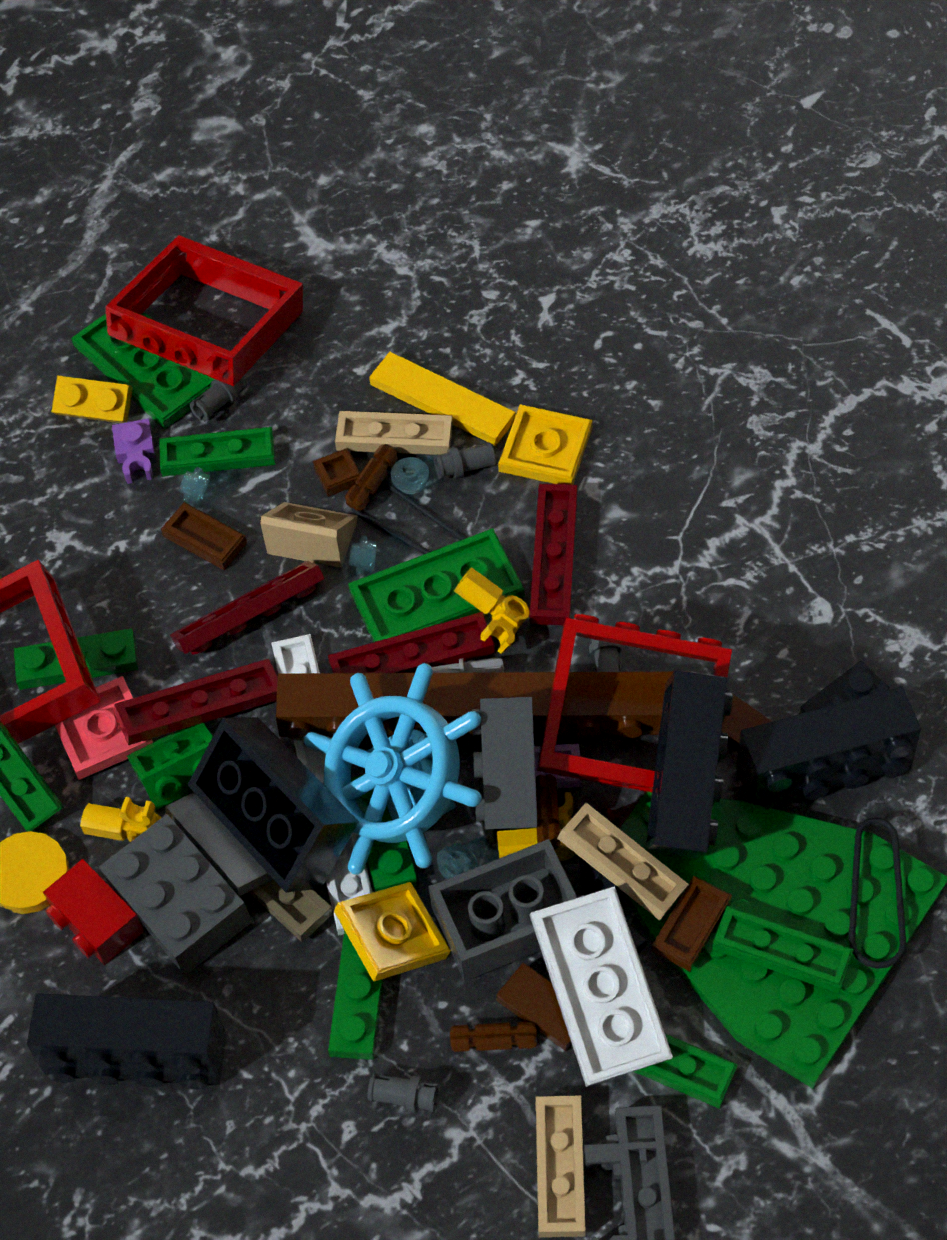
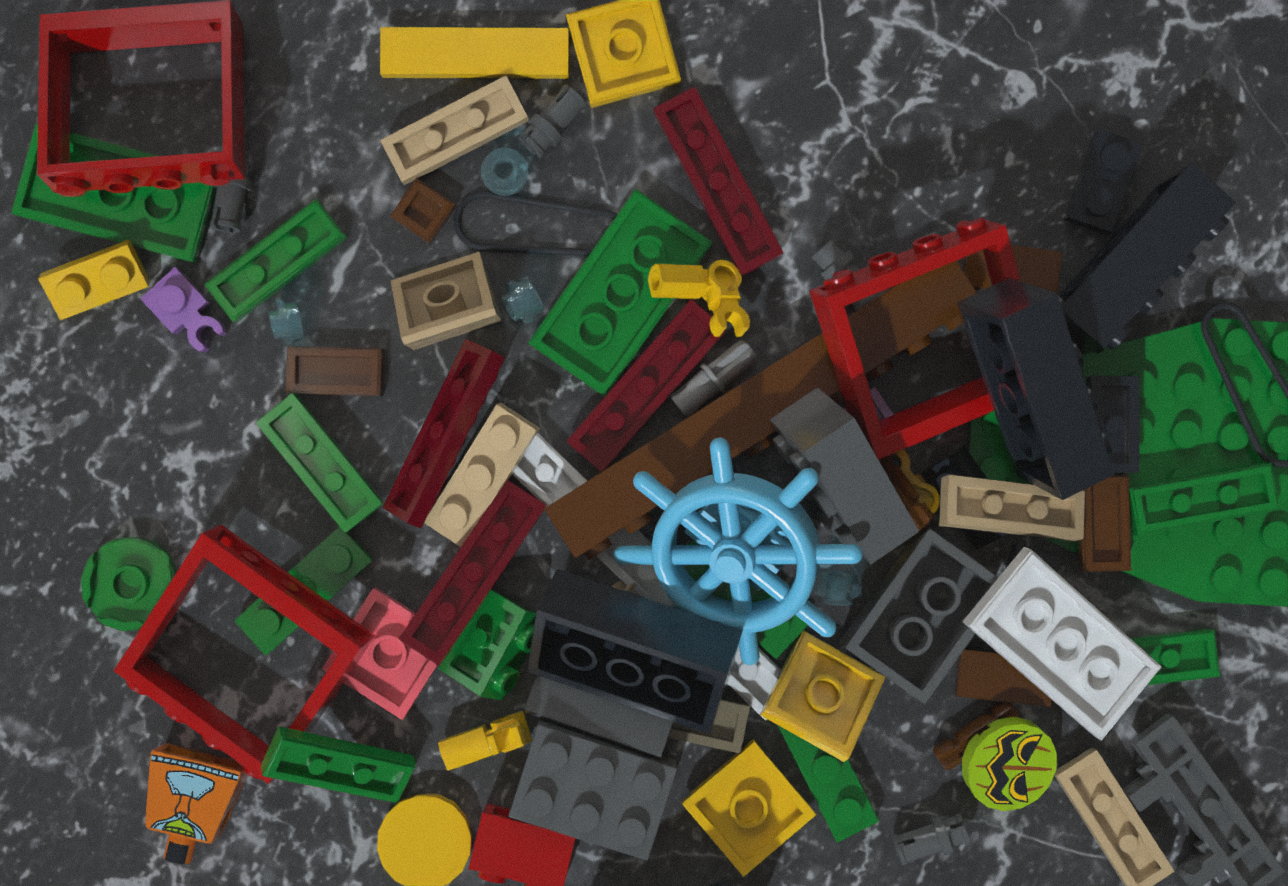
camera: 35 degrees left, 30 degrees up
(149, 583) = (320, 462): none -> green plate
(259, 641) = (481, 473): none -> tan plate
(279, 984) = (748, 807): none -> yellow plate
(371, 477) = (467, 200): reddish brown axle -> none
(503, 1067) = (1009, 764): none -> lime tile
(740, 851) = (1119, 418): none -> black plate

